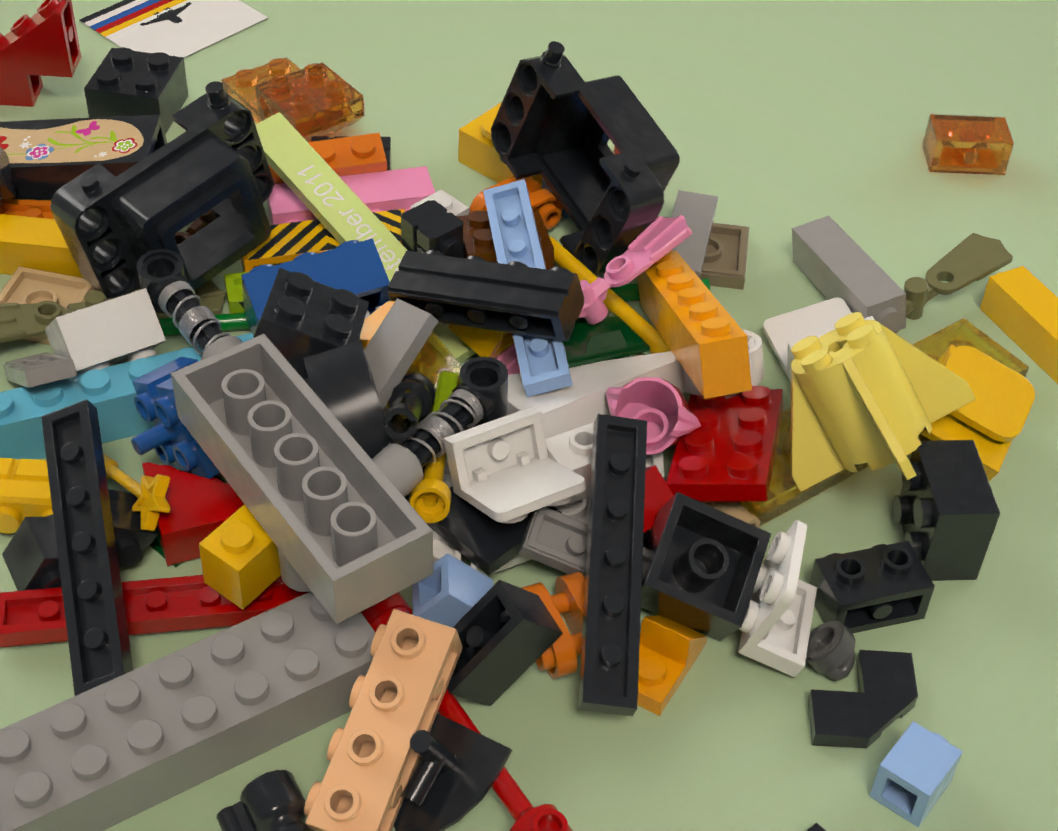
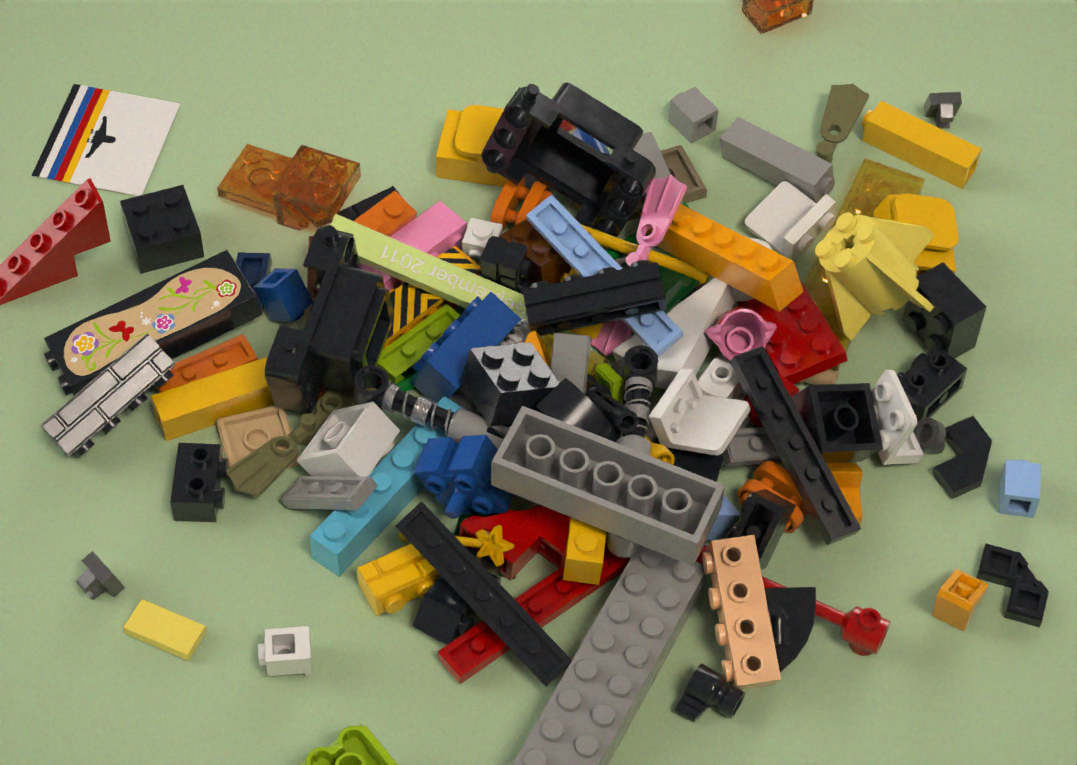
camera: 30 degrees left, 10 degrees up
(783, 203) = (693, 114): none -> light grey brick

